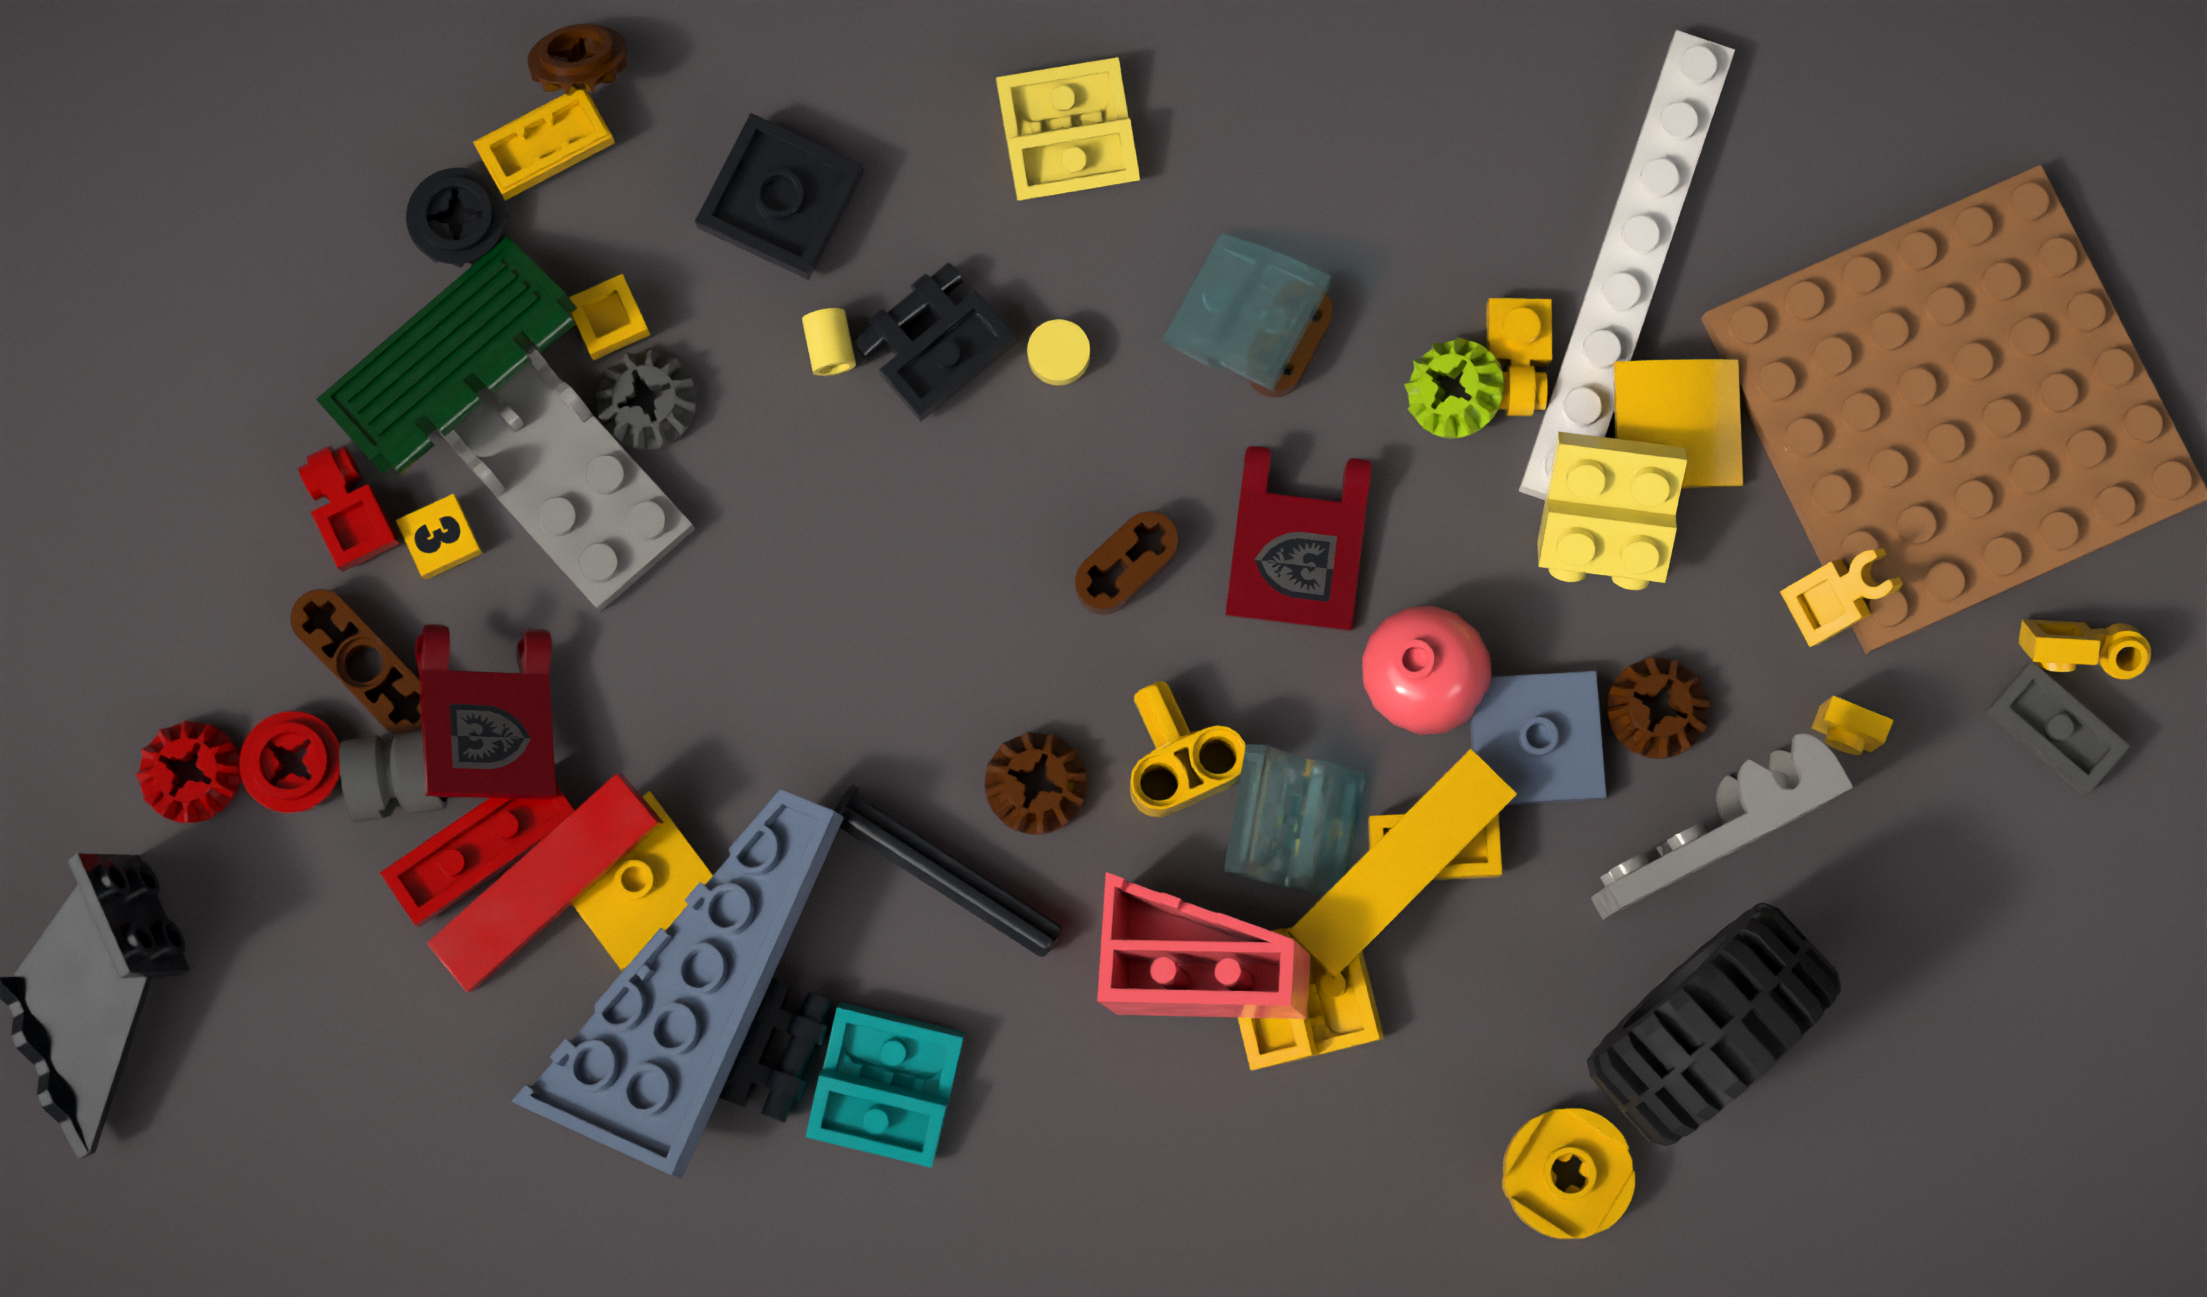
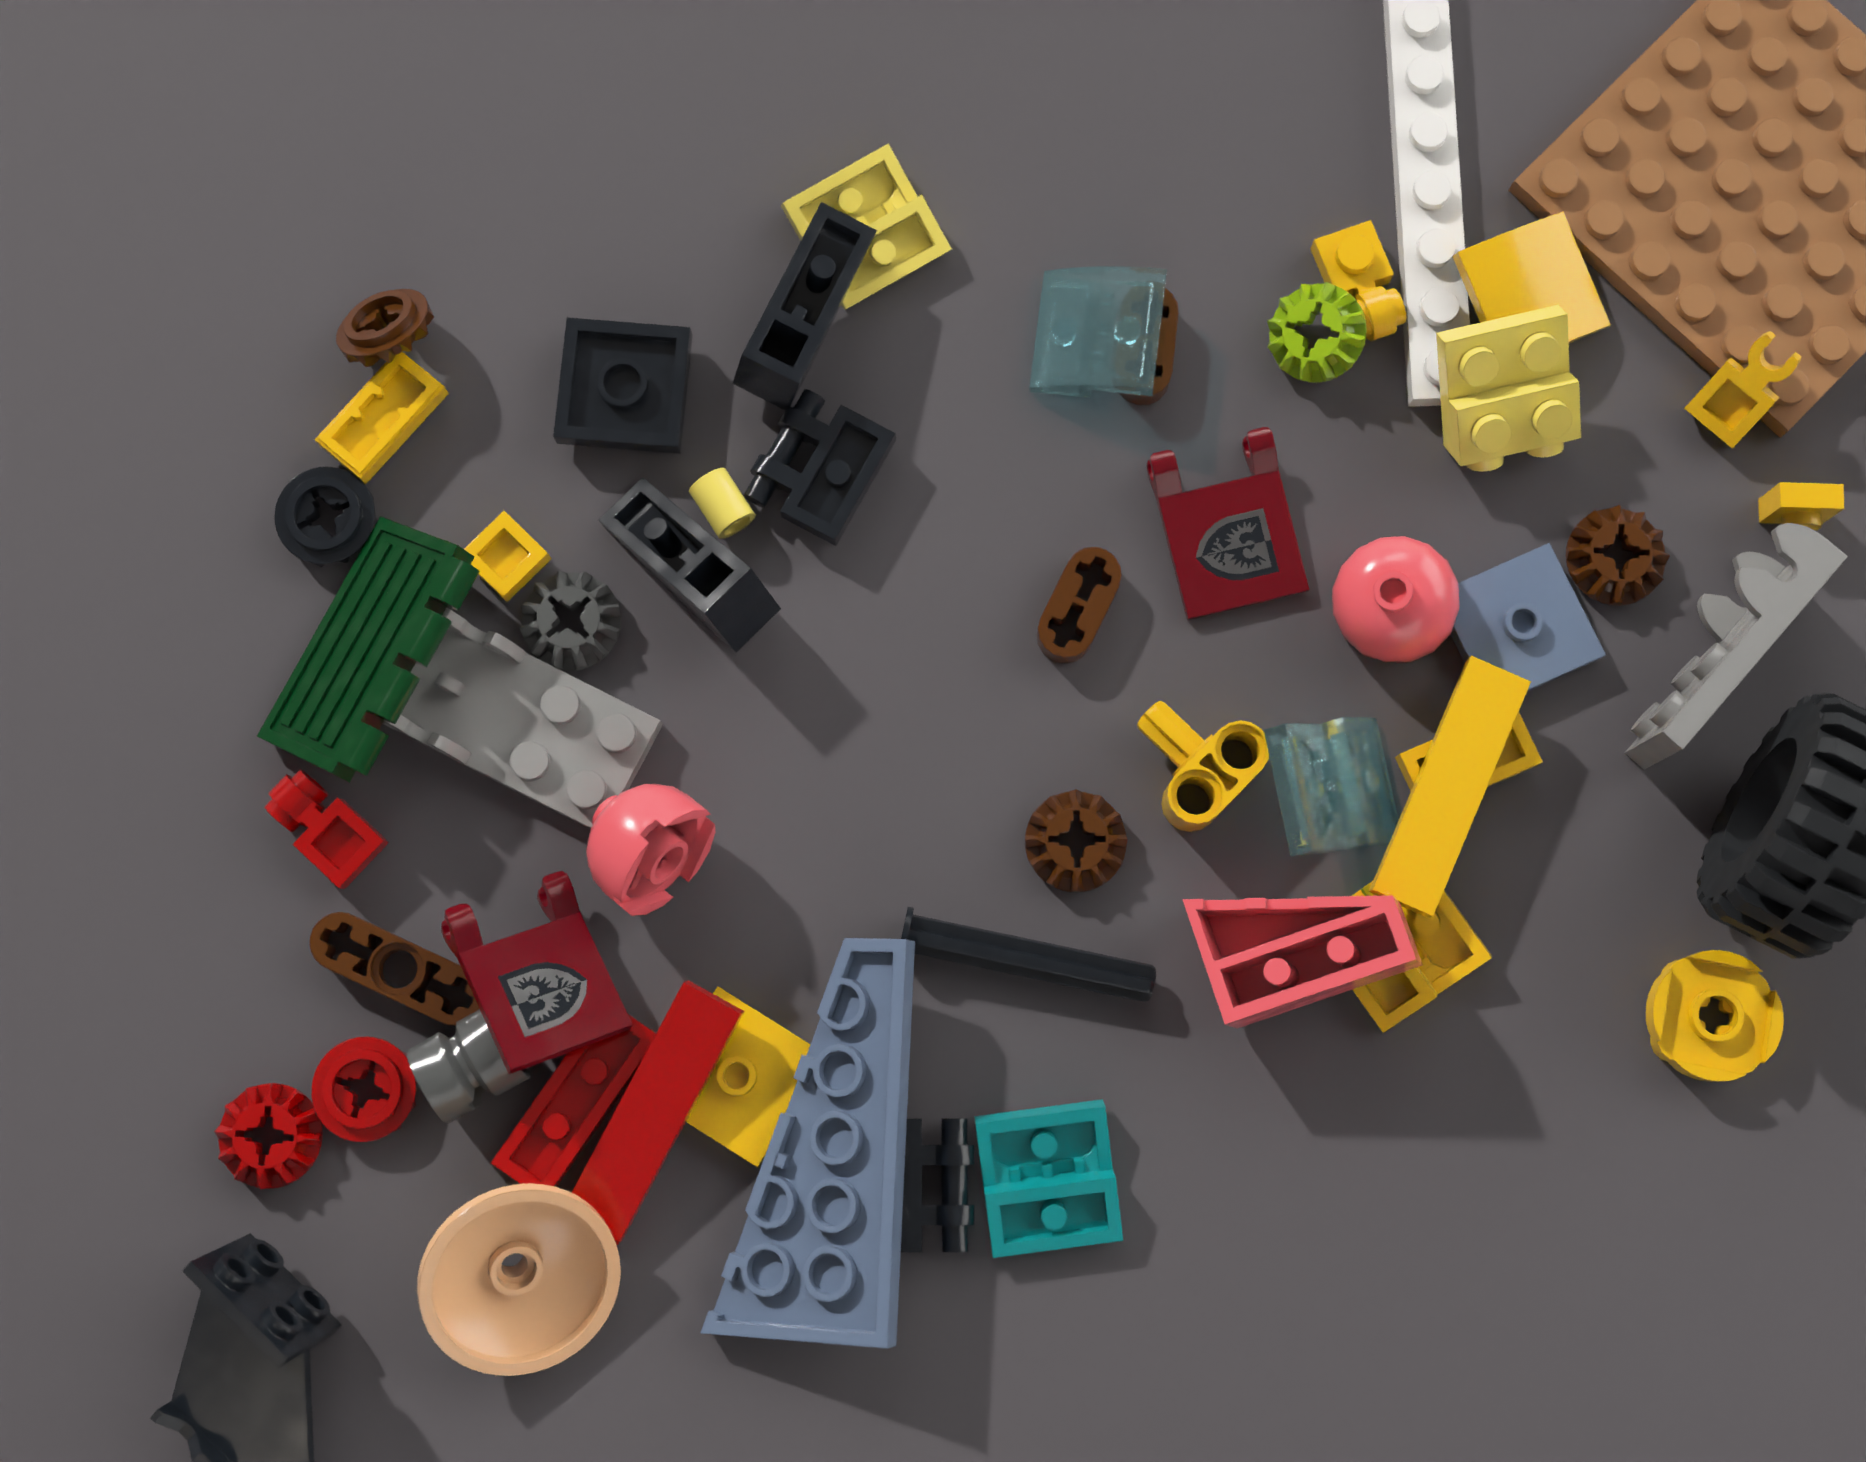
camera: 20 degrees left, 0 degrees up
(359, 1022) = (527, 1312): none -> light nougat dish
(439, 537) = (424, 822): yellow tile -> none
(632, 634) = (645, 843): none -> coral cylinder
(776, 388) = (691, 564): none -> black slope
(975, 184) = (803, 306): none -> black slope
(1058, 352) = (938, 434): light yellow tile -> none

